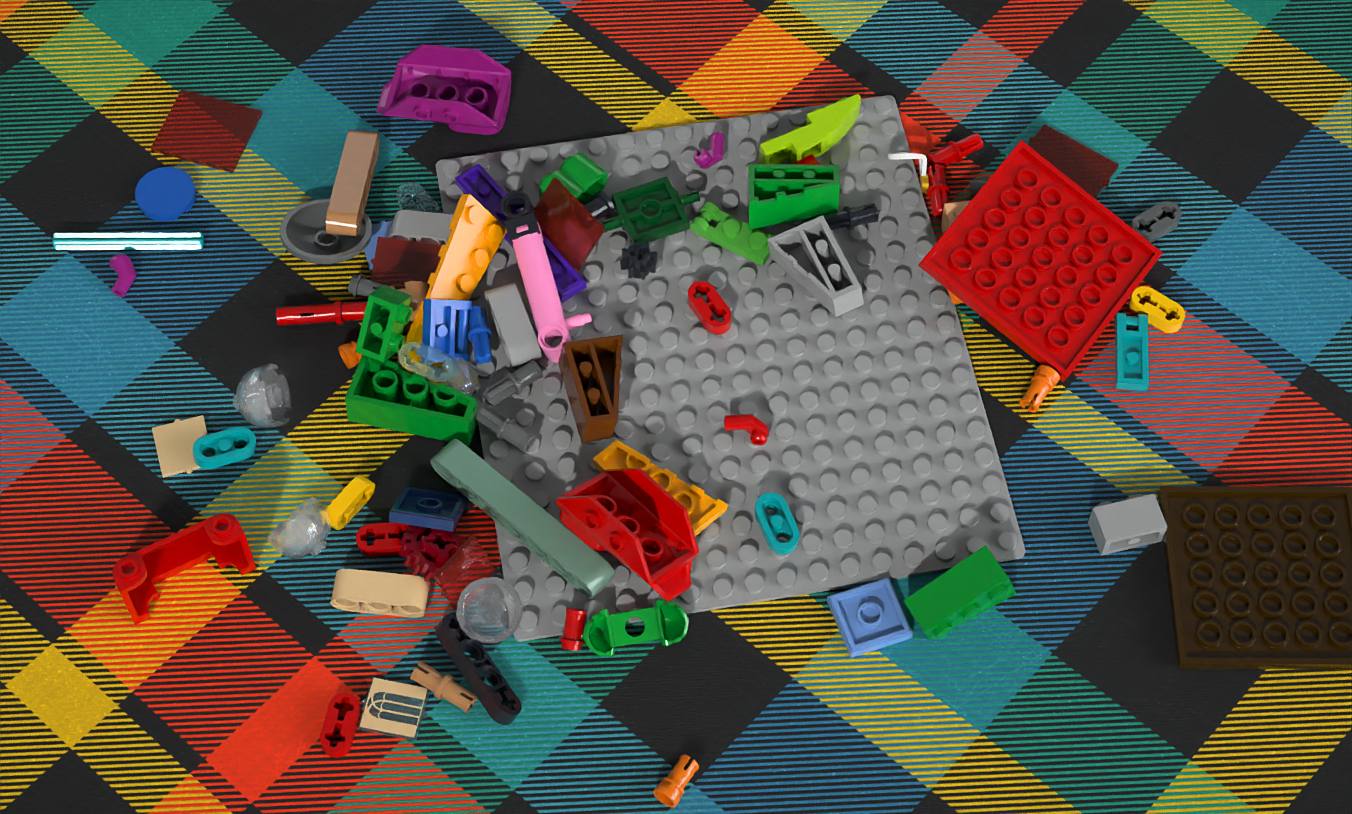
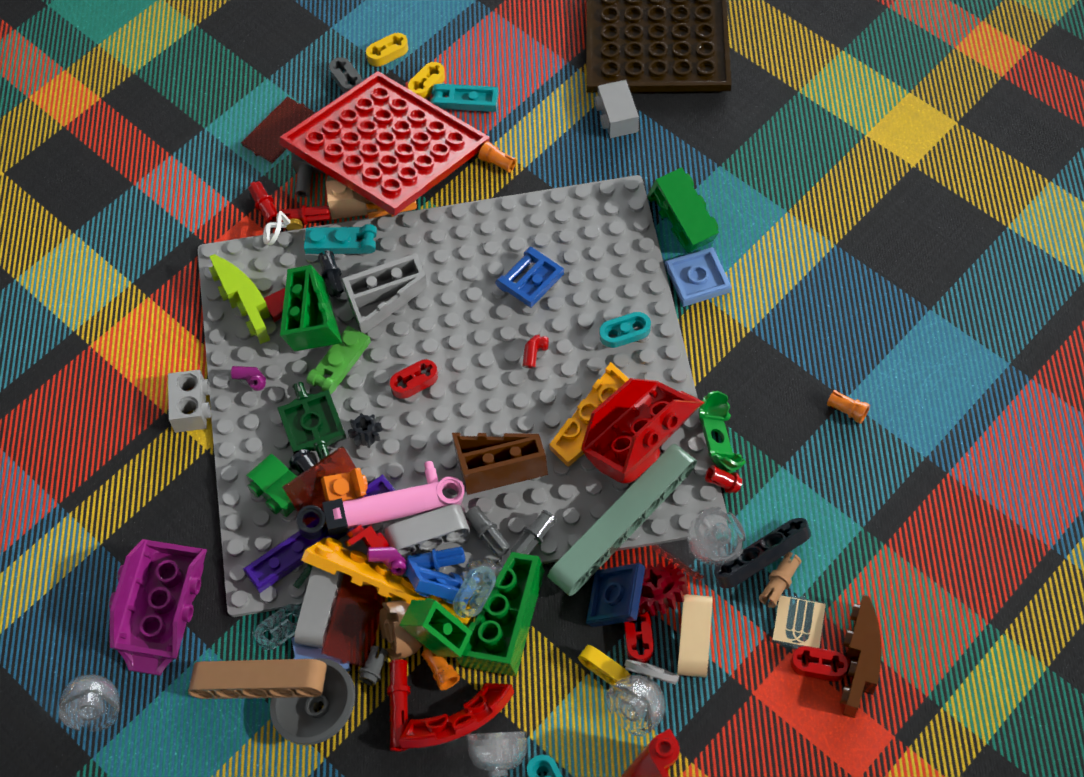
camera: 85 degrees left, 0 degrees up
(288, 350) = (442, 729): none -> red tile
(334, 541) = (651, 671): none -> light grey wheel
(345, 50) = (89, 702): none -> clear cylinder
(354, 772) = (865, 652): none -> reddish brown slope
(473, 284) = (390, 557): none -> magenta arm
(499, 269) = (367, 535): none -> red bracket
(560, 238) = (345, 486): none -> orange bracket
(684, 100) = (183, 401): none -> light grey brick
(845, 427) = (535, 281): none -> blue plate
(899, 225) = (340, 240): none -> teal plate
(1202, 265) = (387, 49): none -> yellow beam

